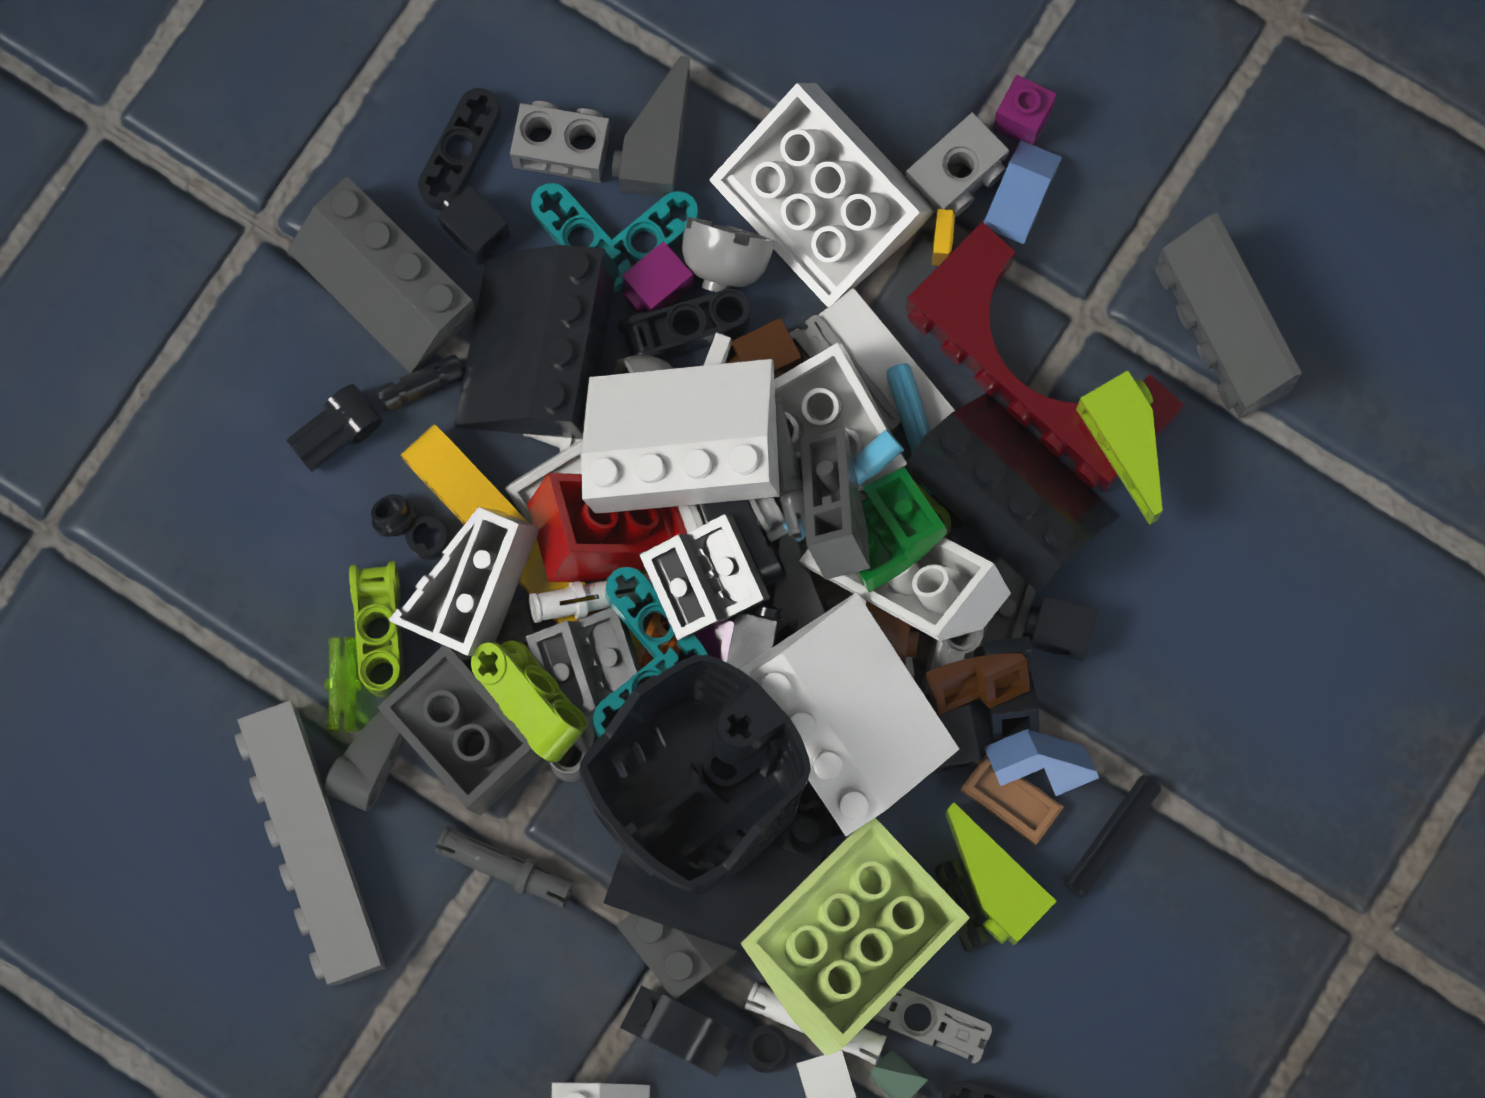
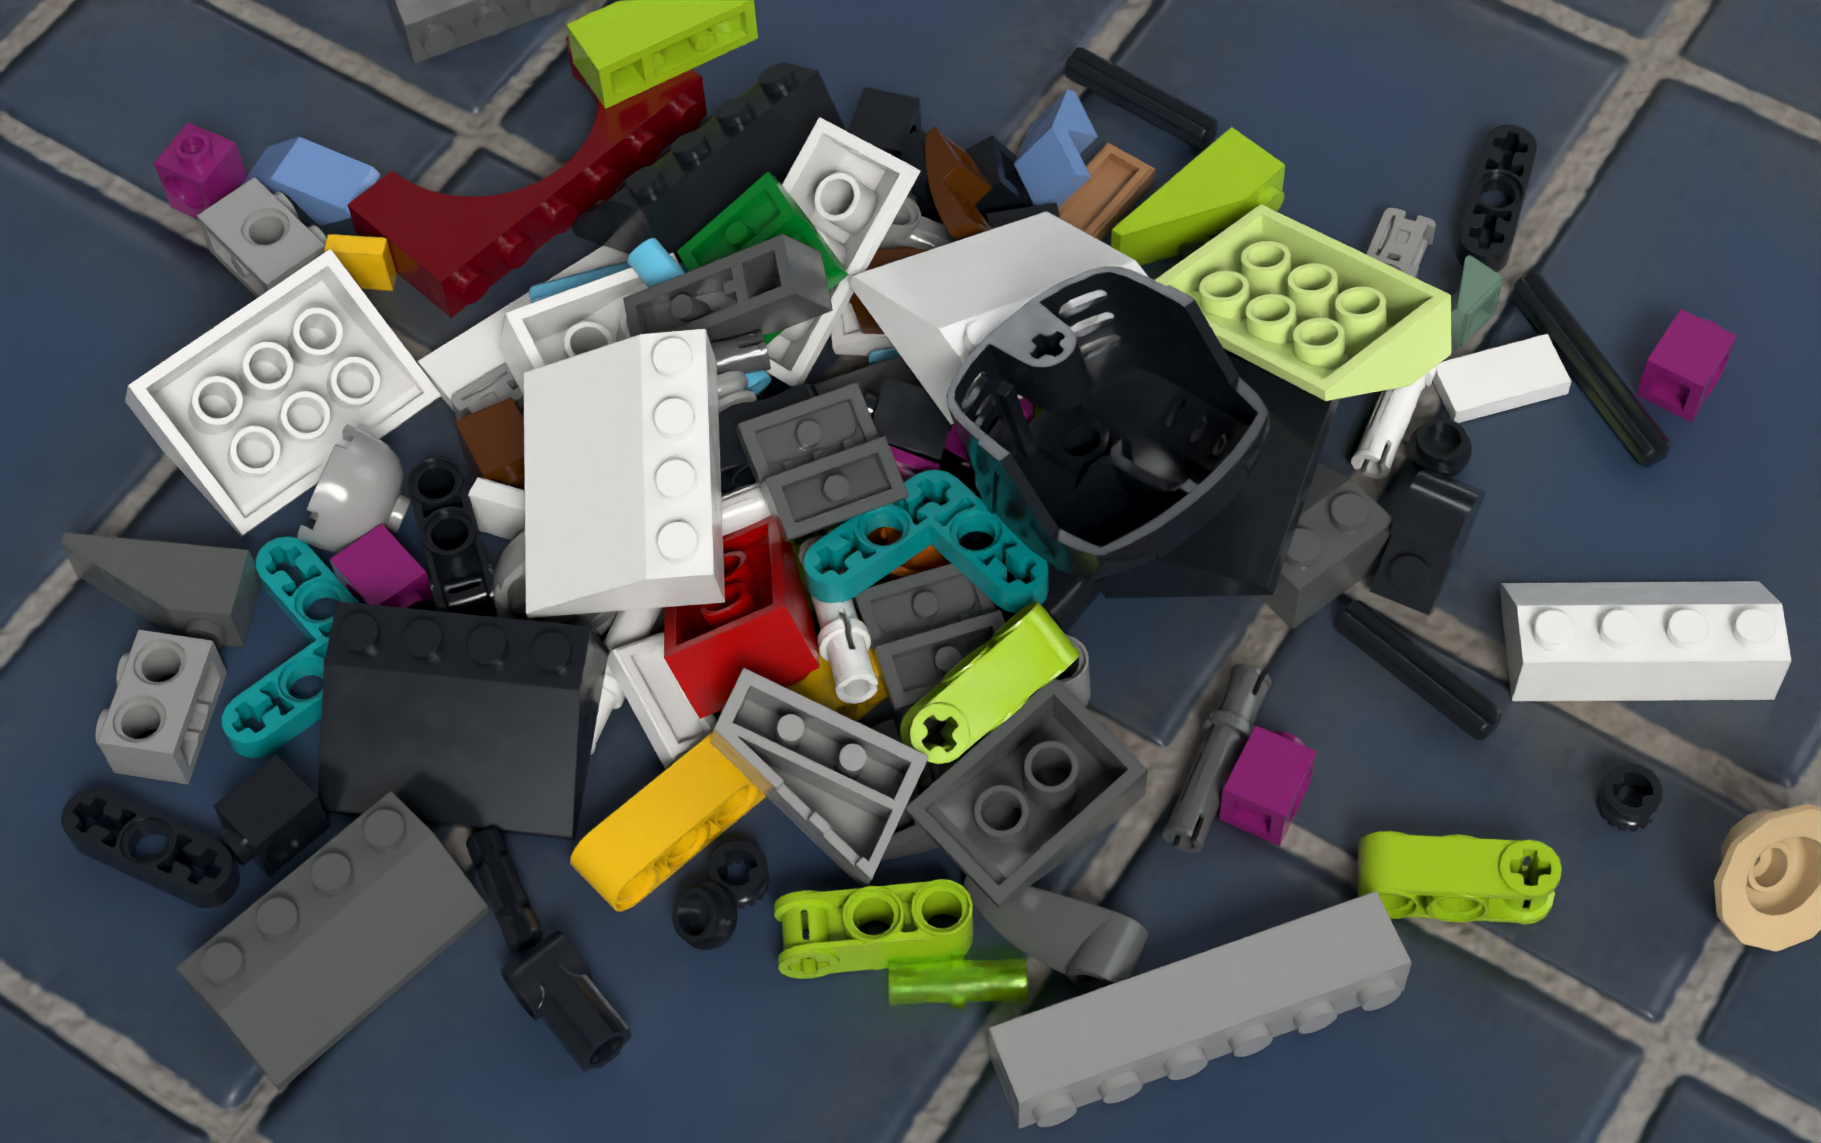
camera: 90 degrees left, 20 degrees down
(403, 1022) = (1458, 877): none -> lime piece
(480, 900) = (1268, 784): none -> magenta brick
(575, 1016) = (1419, 670): none -> black axle

